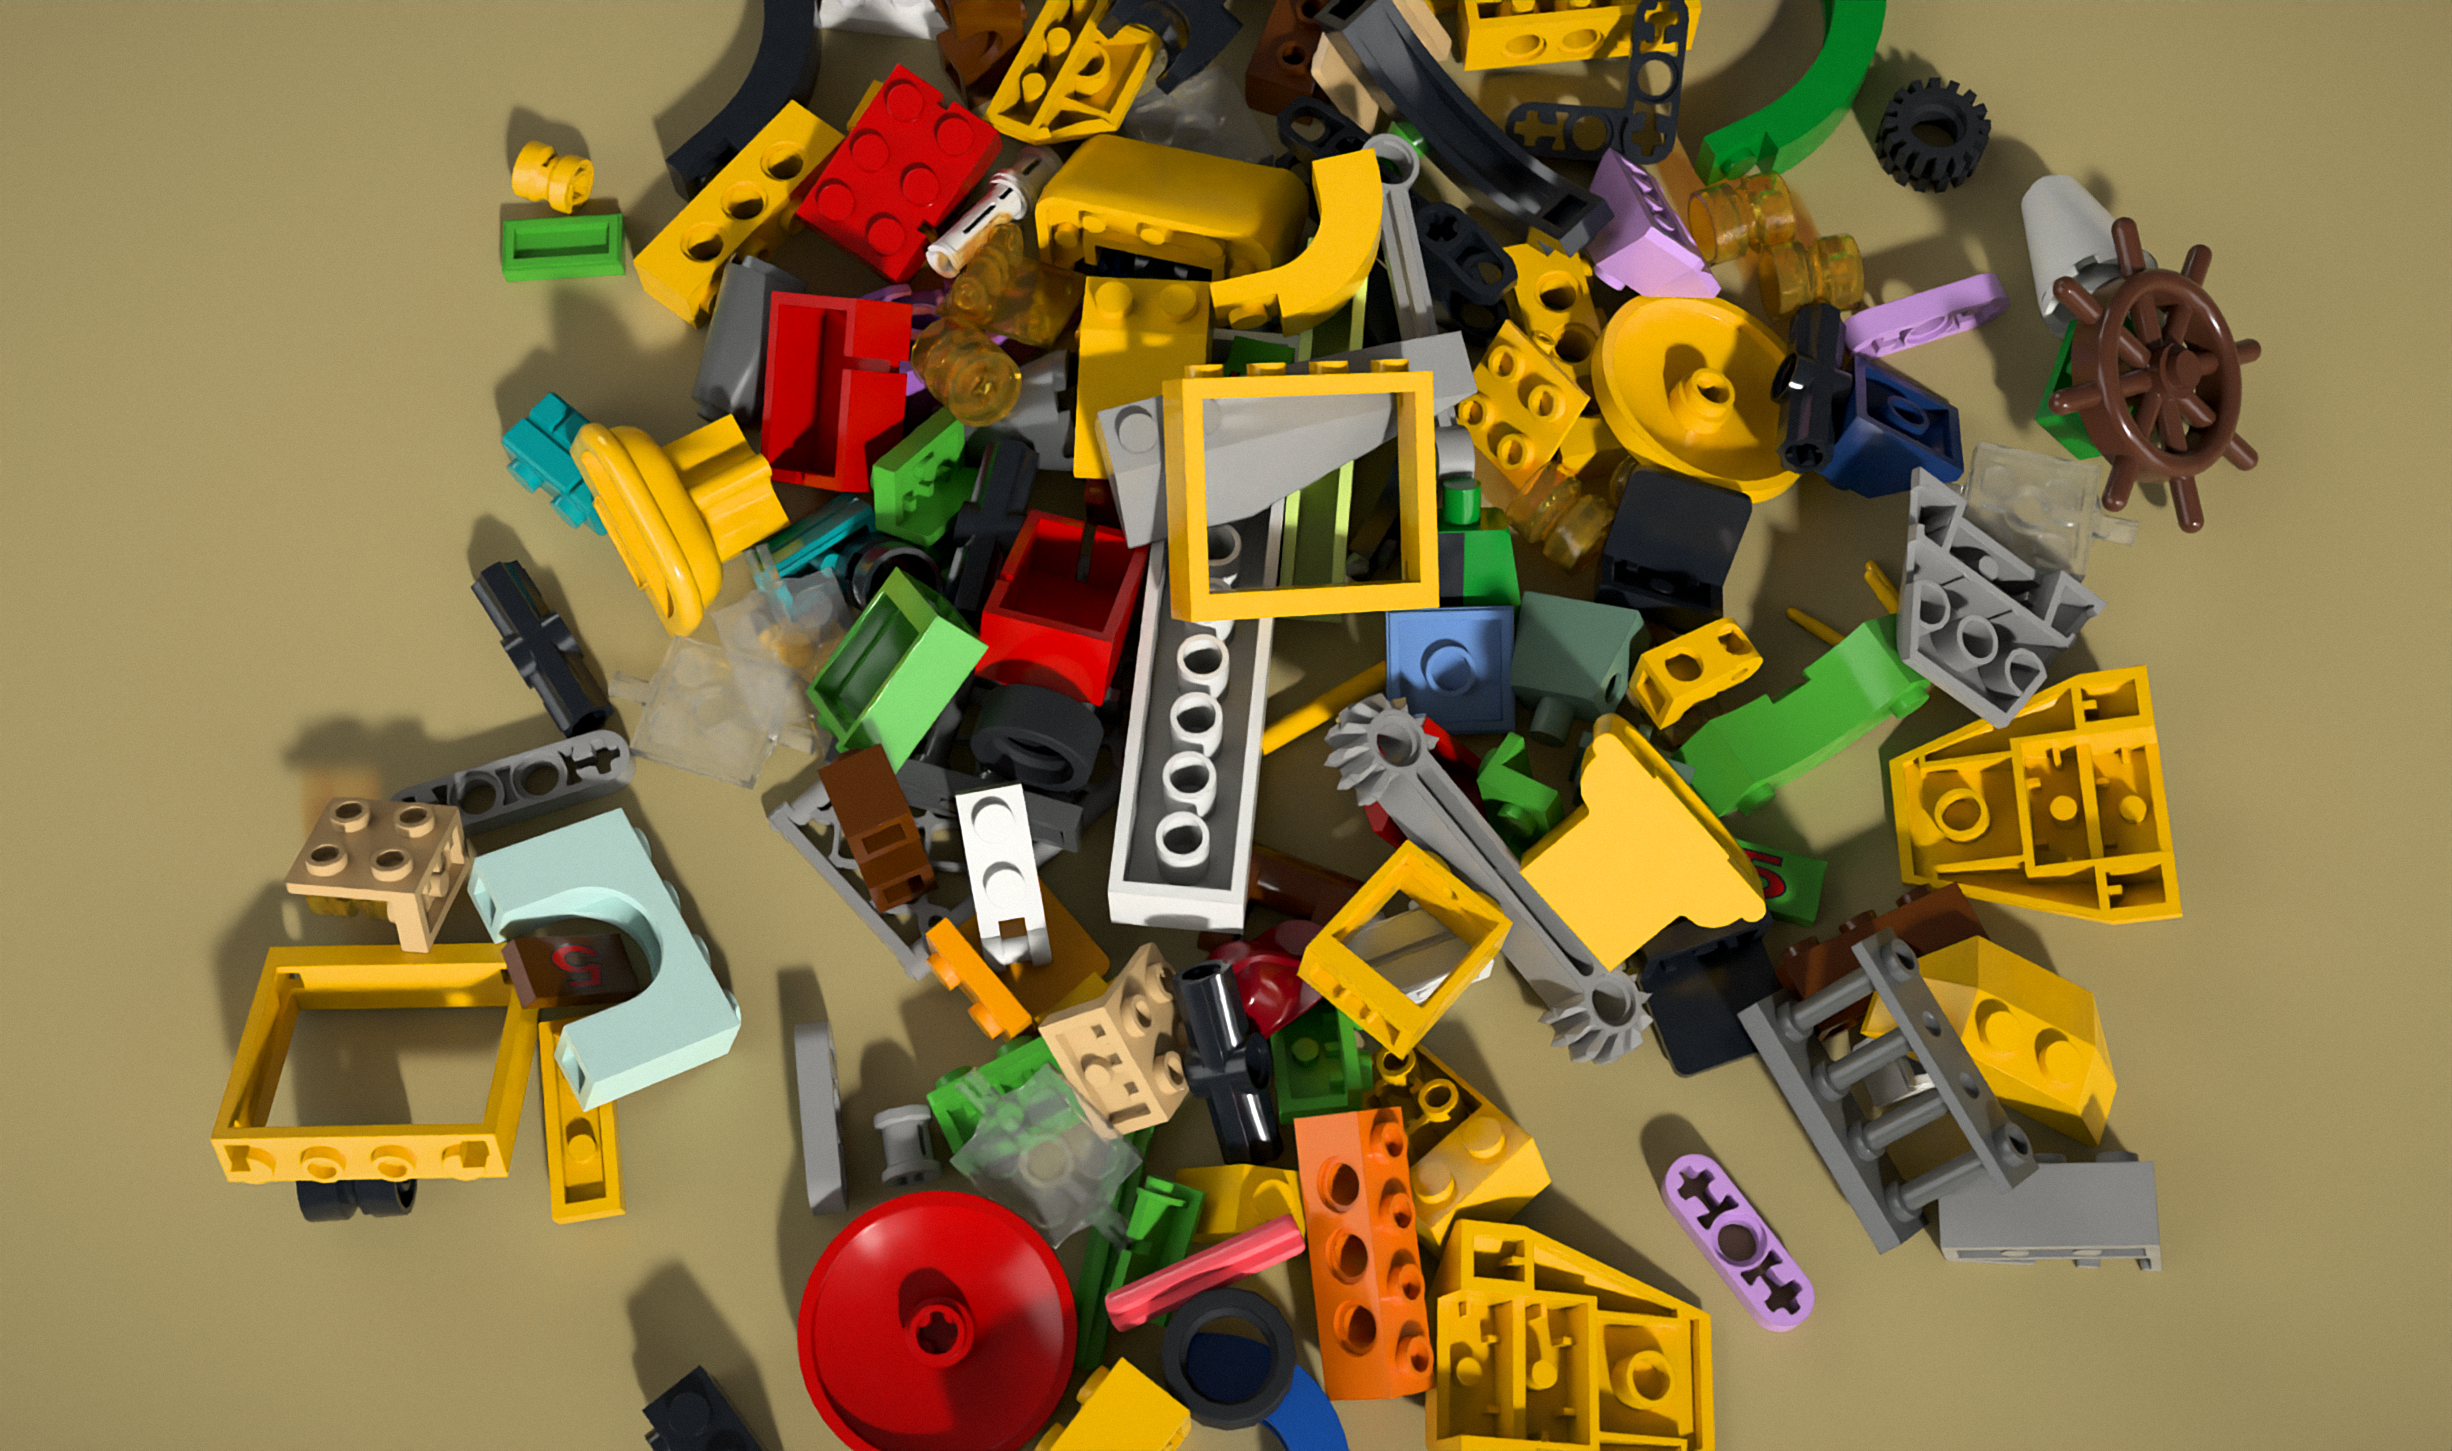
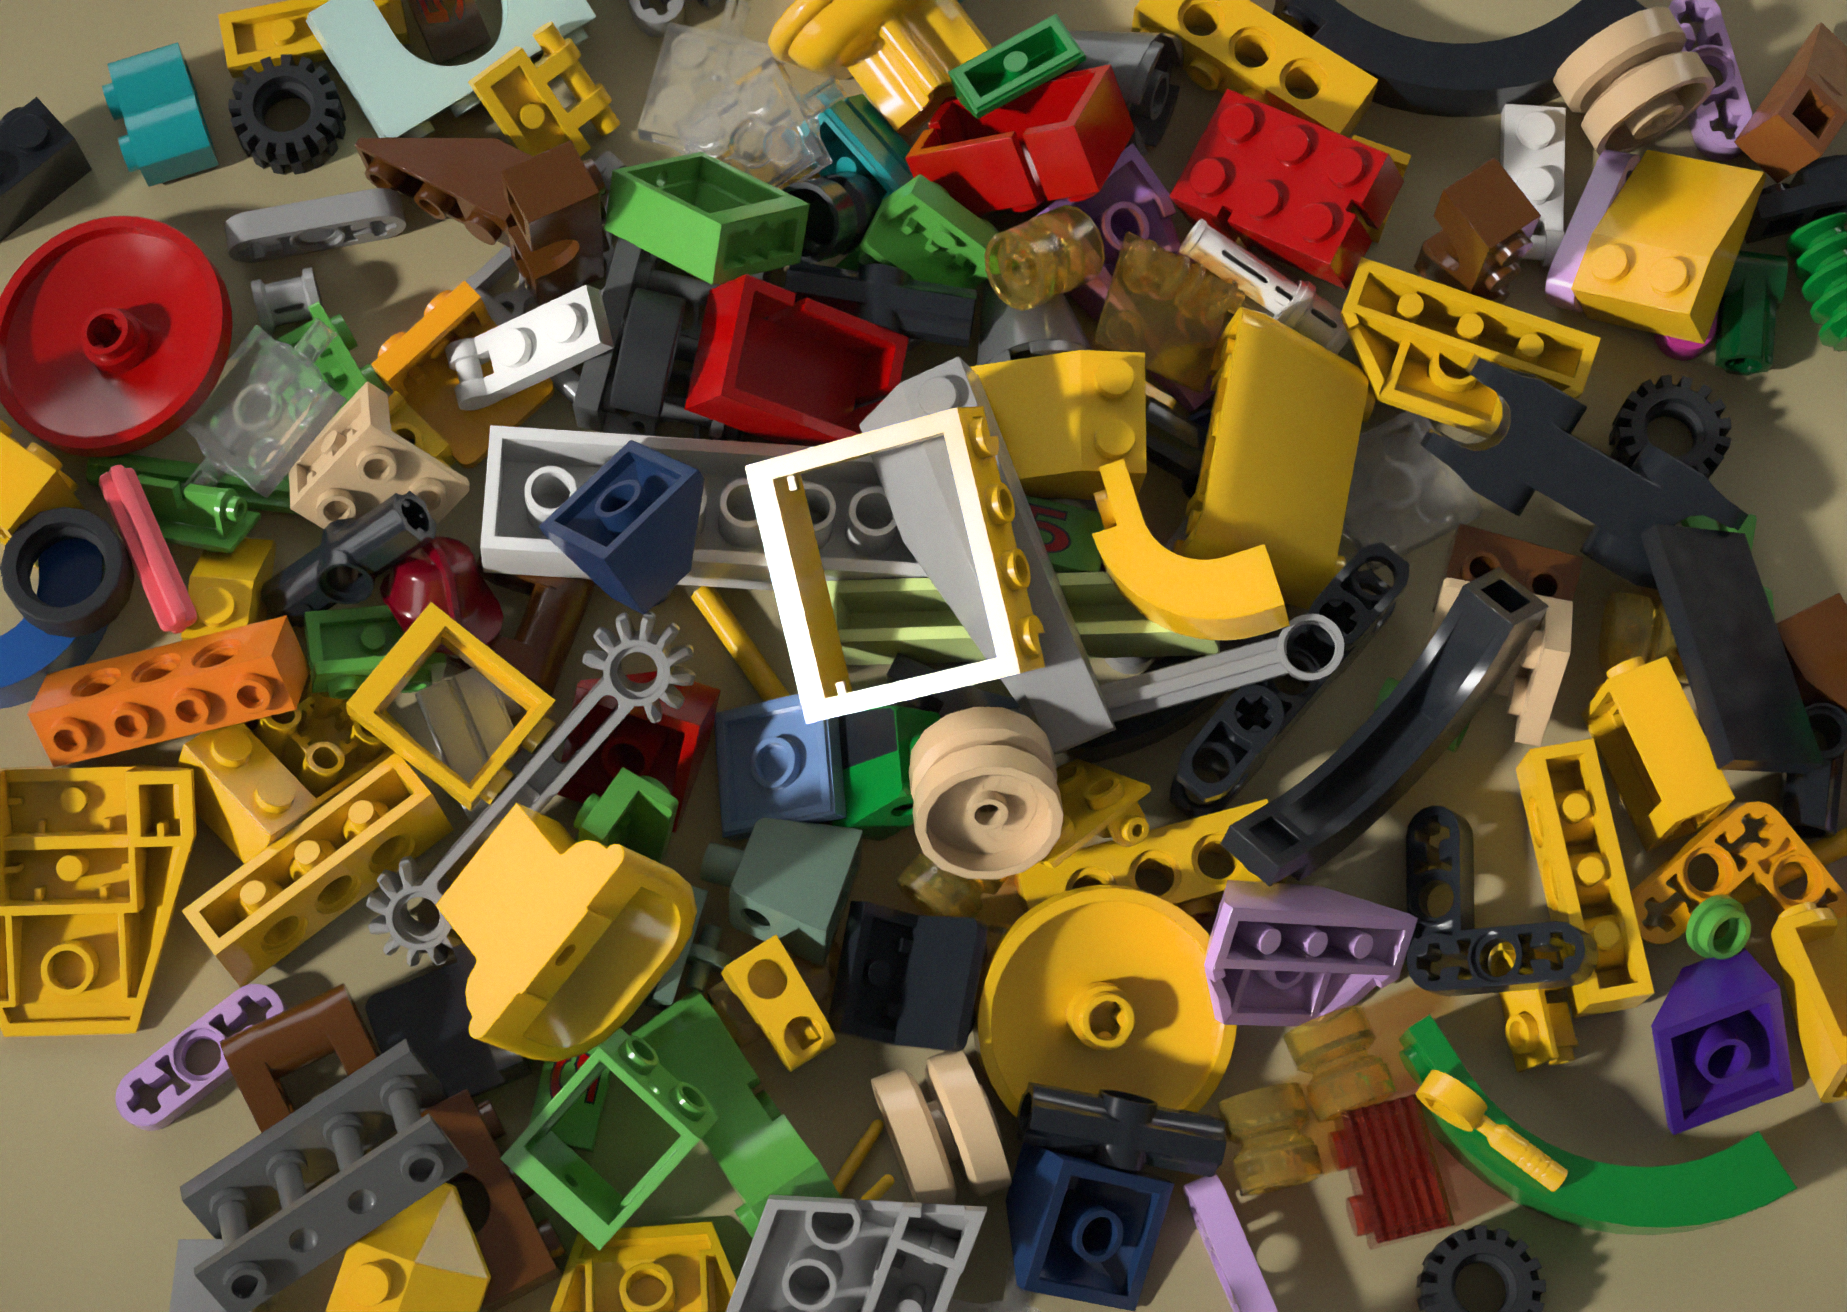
camera: 85 degrees right, 5 degrees up
(659, 1115) = (278, 84): none -> black tyre
(665, 1286) = (160, 114): none -> teal brick
(719, 881) = (526, 107): none -> yellow plate
(756, 386) = (1015, 66): none -> green slope
(795, 943) = (447, 178): none -> reddish brown slope
(1232, 745) = (632, 525): none -> dark blue slope
(1523, 441) = (985, 793): none -> tan wheel
(1553, 1109) = (317, 869): none -> yellow brick
(1707, 76) = (1533, 1028): none -> yellow hinge
(1733, 1134) = (292, 1041): none -> reddish brown connector
(1799, 102) = (1466, 1111): none -> yellow piece
(1819, 533) = (948, 1130): none -> tan wheel
(1842, 188) = (1390, 1172): none -> clear red brick
(1896, 828) = (569, 1181): none -> bright green window

